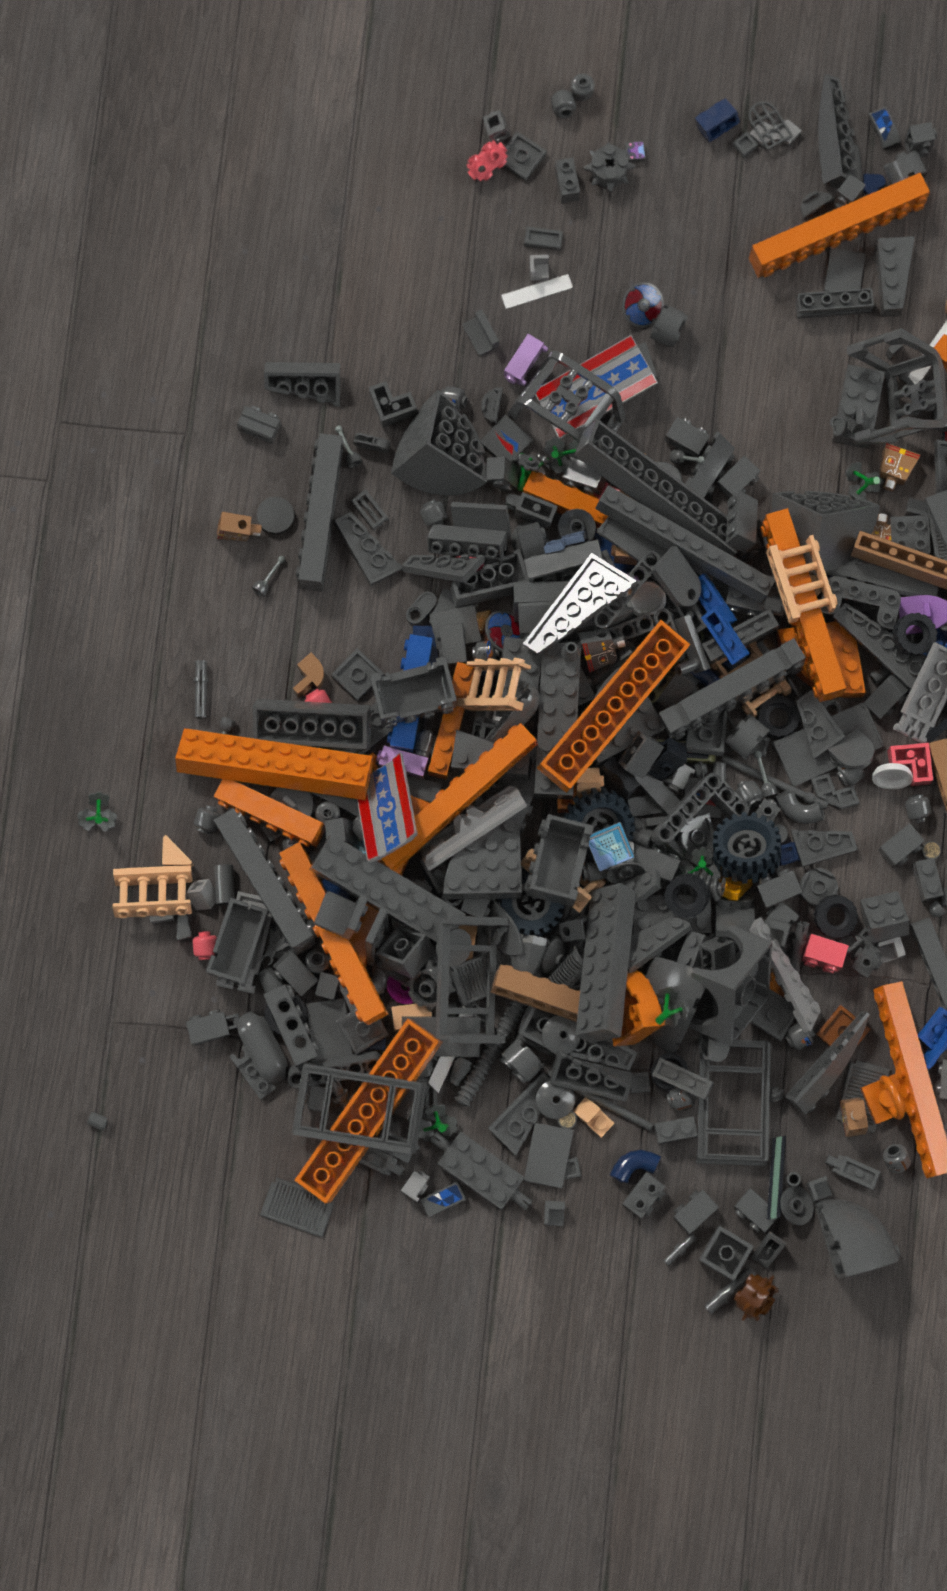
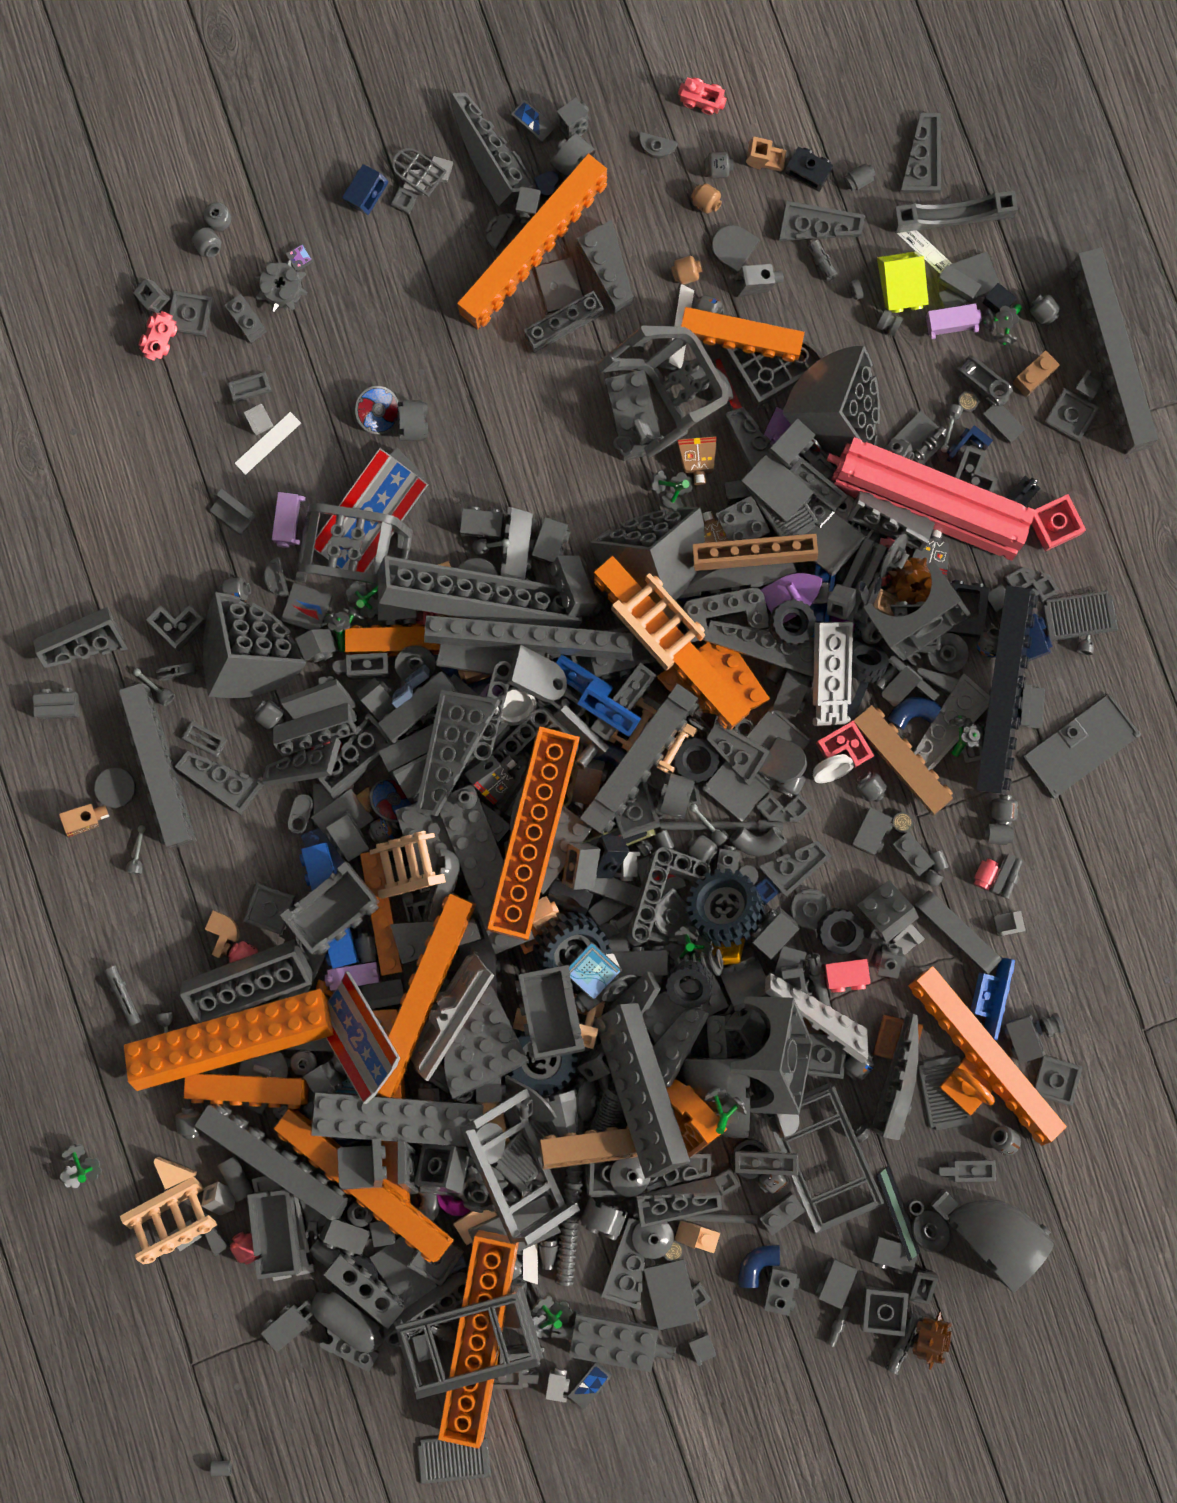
camera: 20 degrees left, 5 degrees up
(854, 1116) = (945, 1118): medium nougat torso -> none

